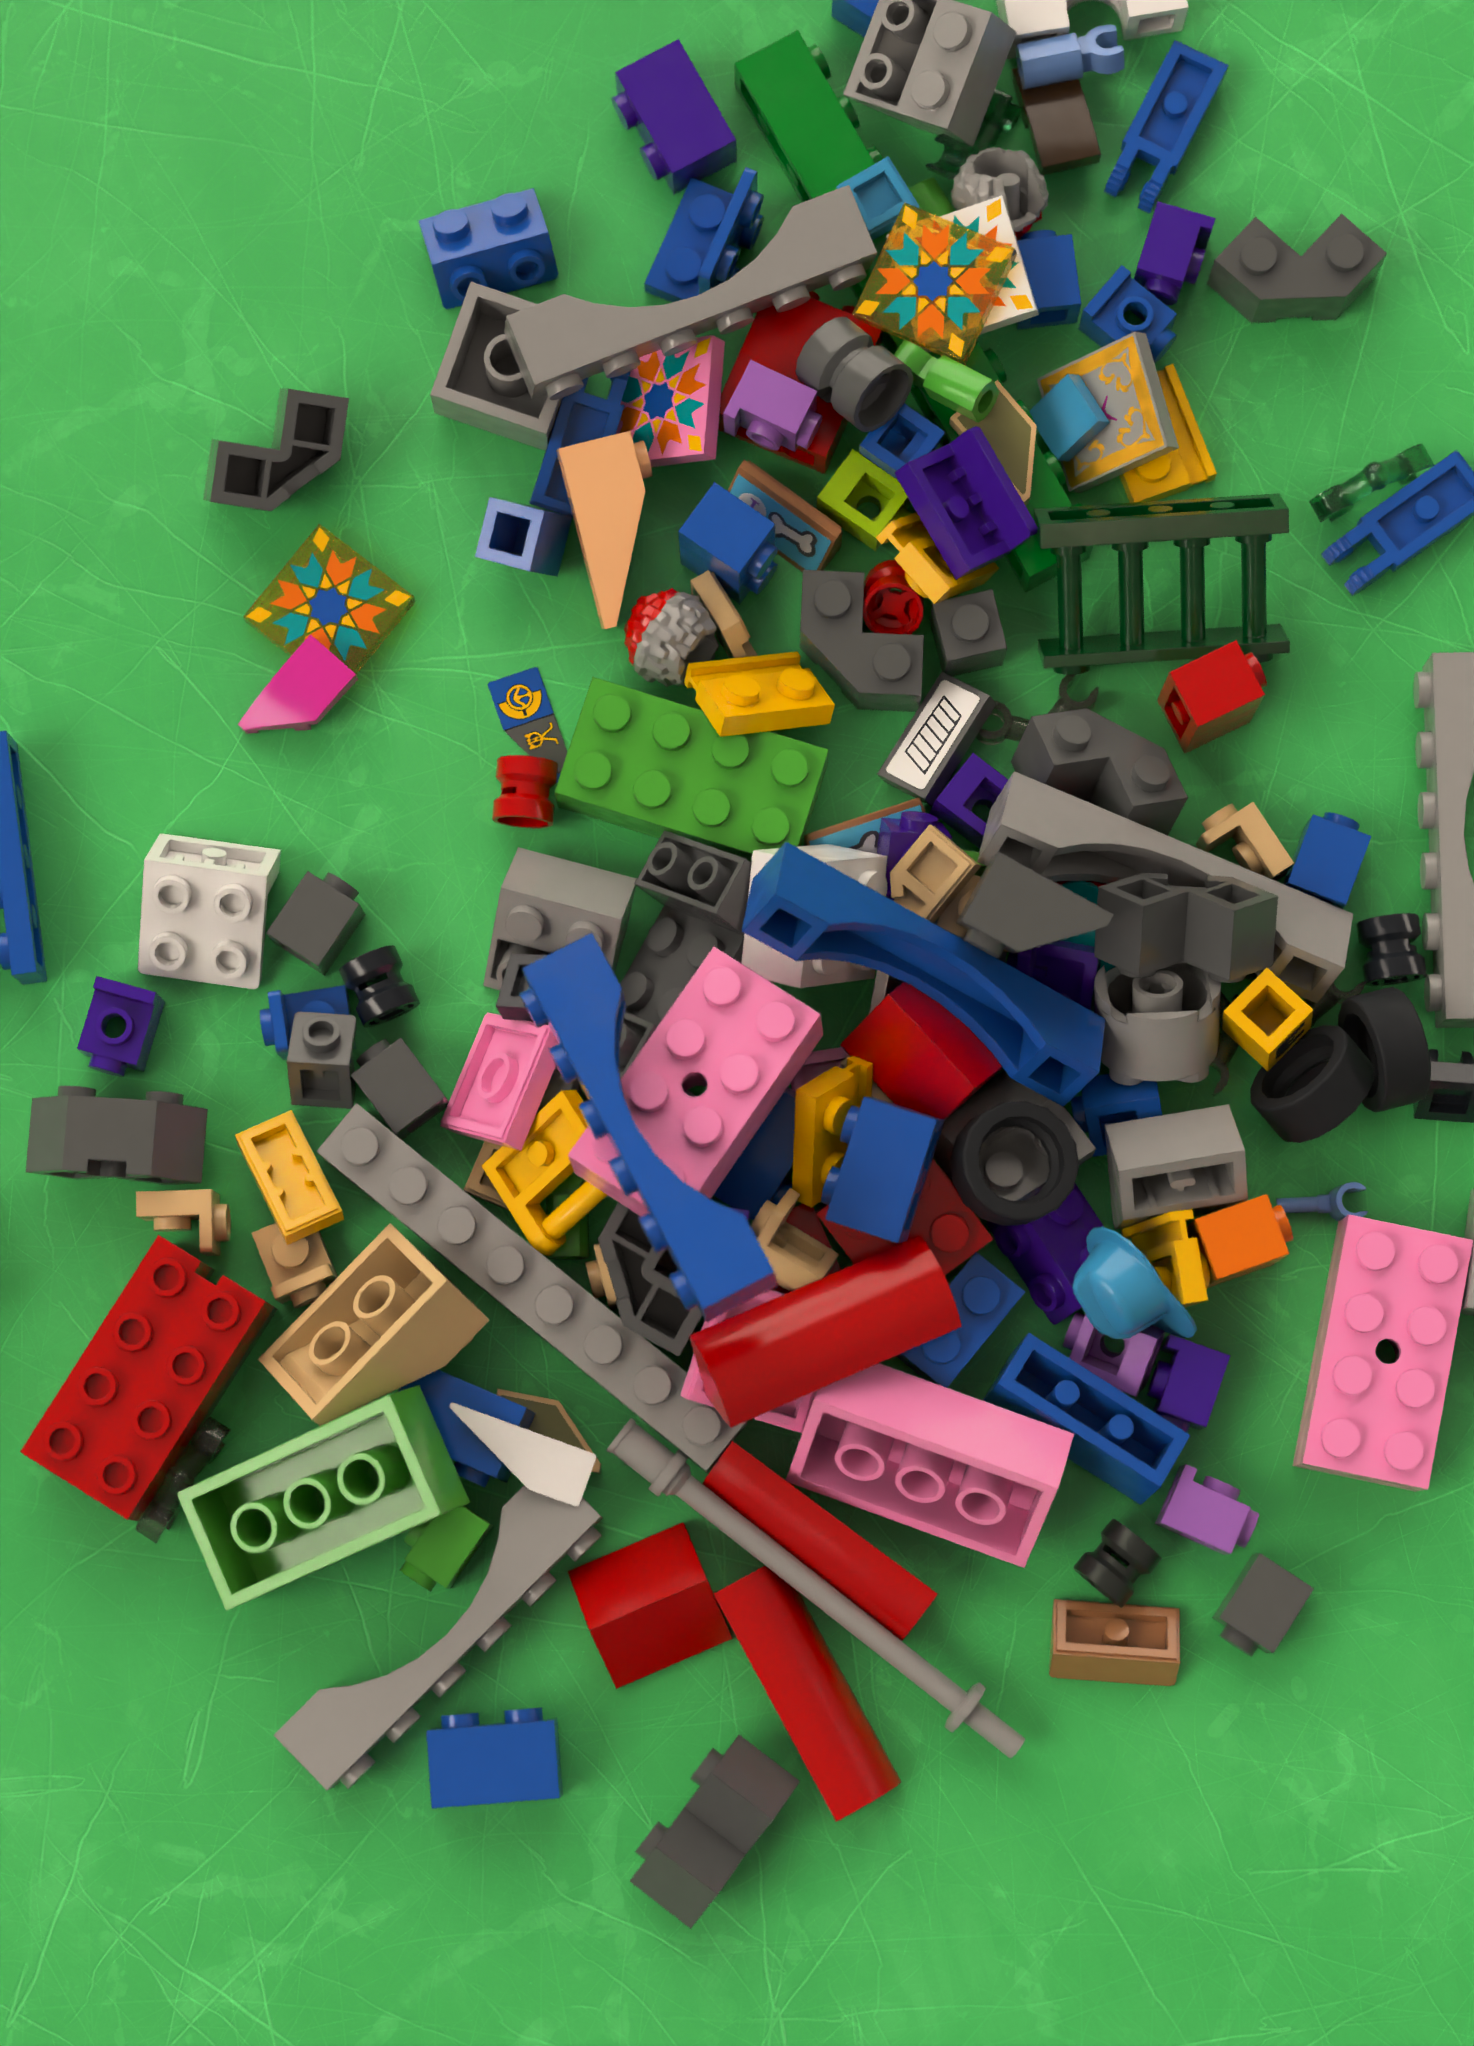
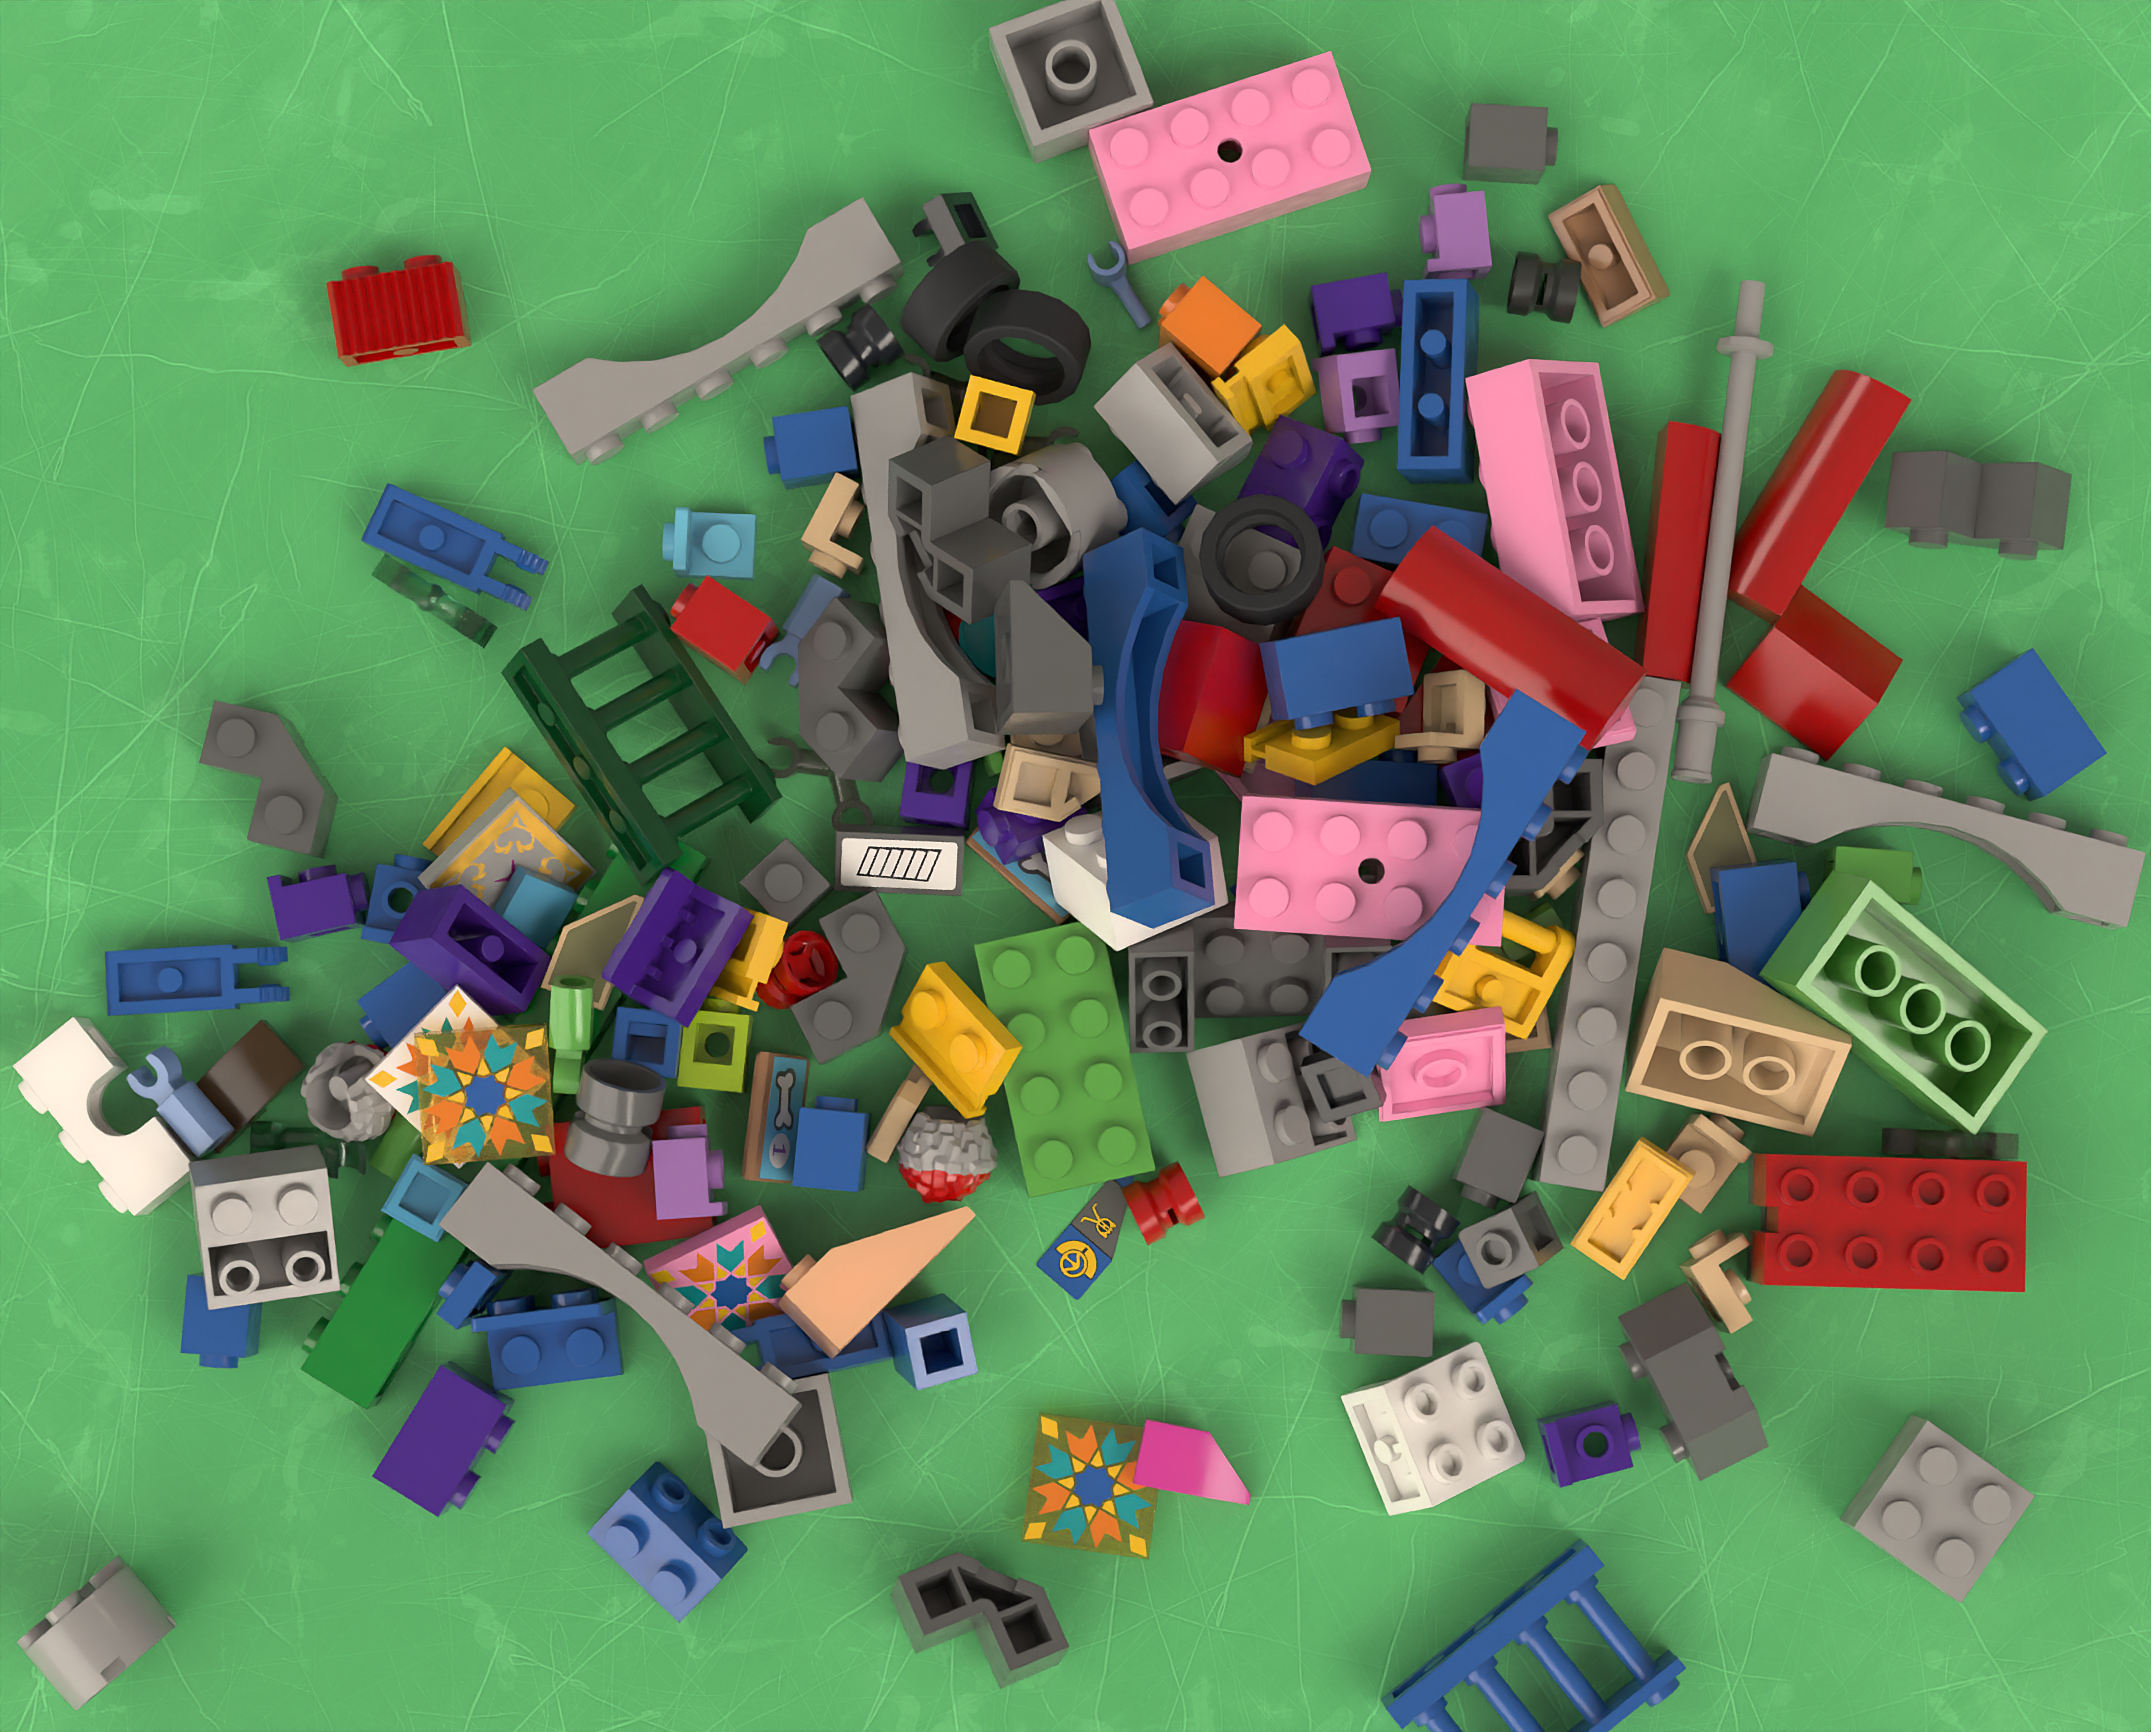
camera: 125 degrees left, 5 degrees up
(535, 1459) = (1759, 839): white sticker -> none
(781, 186) = (469, 1290): none -> blue plate
(1060, 340) = (470, 945): none -> dark purple brick
(1124, 1291) = (1317, 406): dark azure piece -> none
(1200, 798) = (805, 613): none -> medium blue bar
(1292, 734) = (711, 545): none -> medium azure bracket

